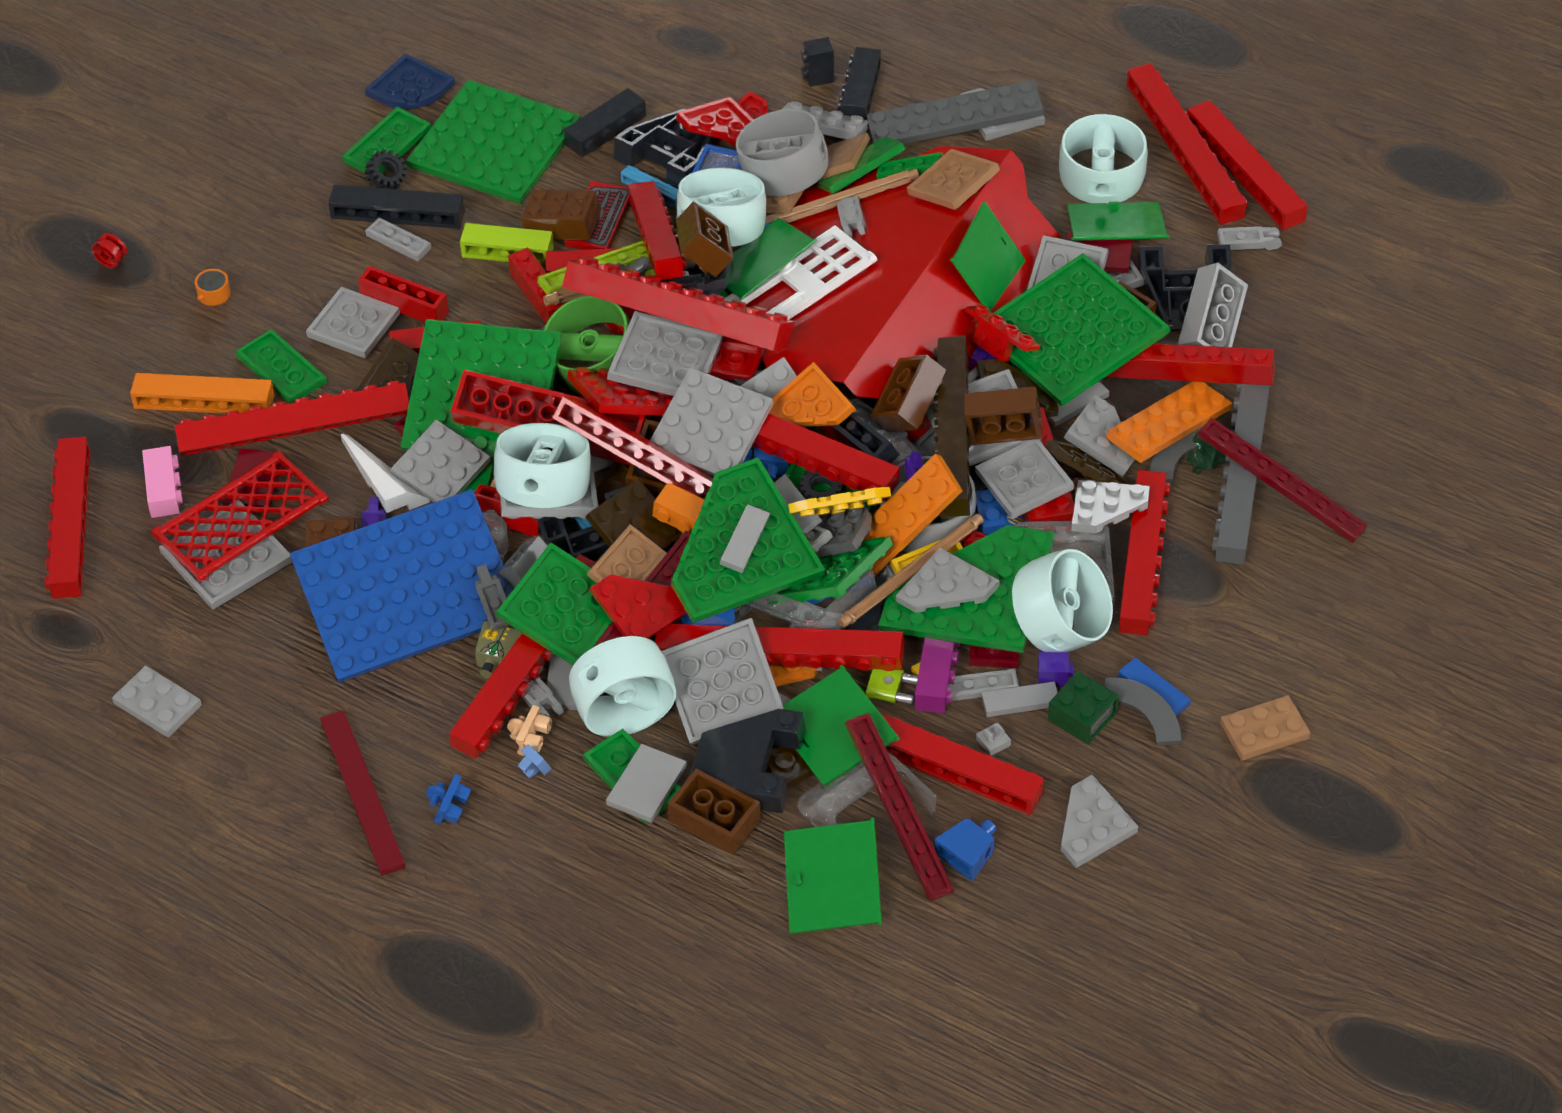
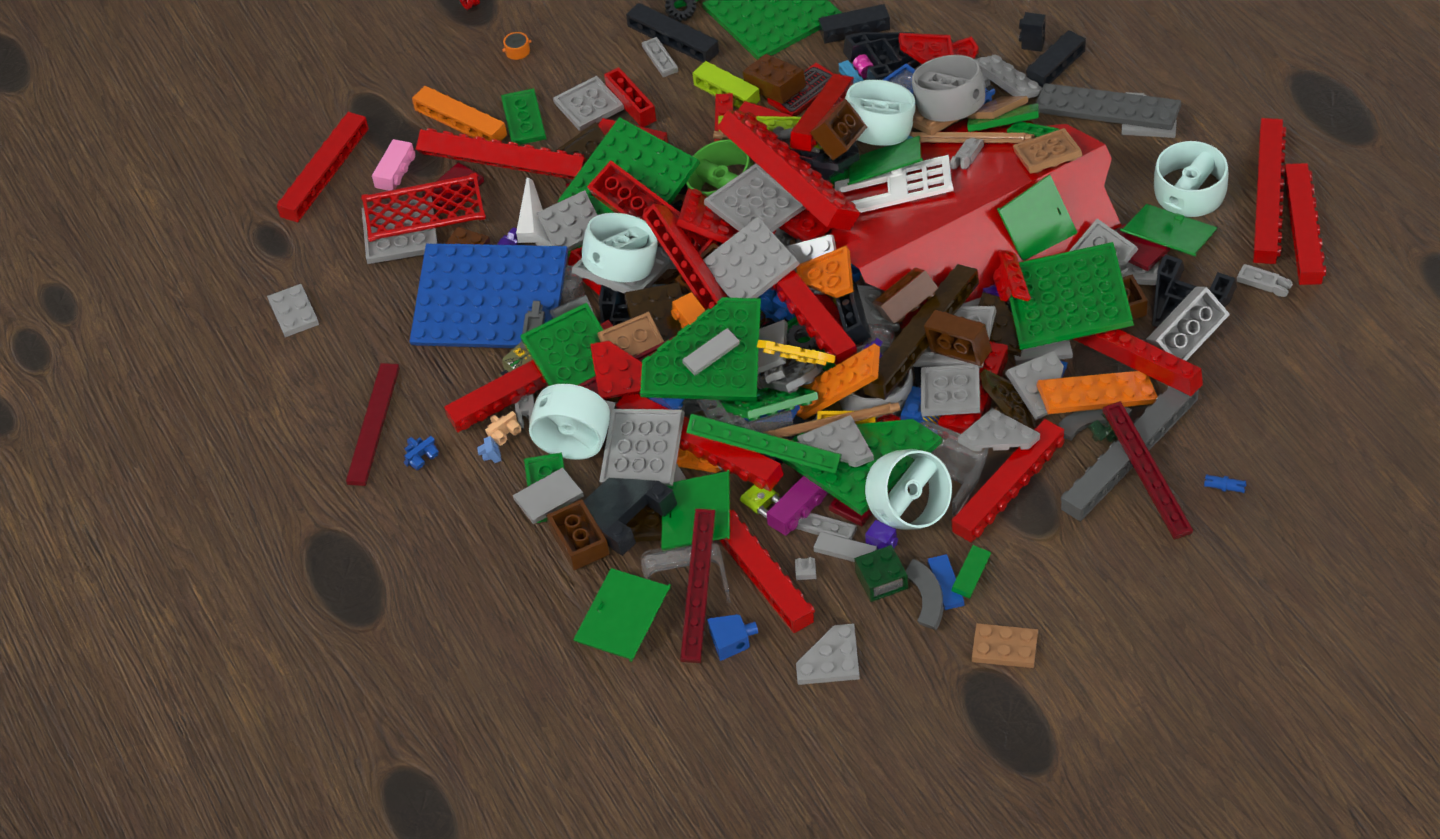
camera: 35 degrees right, 0 degrees up
(653, 166) = (861, 64): none -> dark pink wheel
(870, 616) = (764, 443): none -> green plate
(1175, 664) = (971, 571): none -> green tile
(1364, 463) = (1225, 483): none -> blue pin

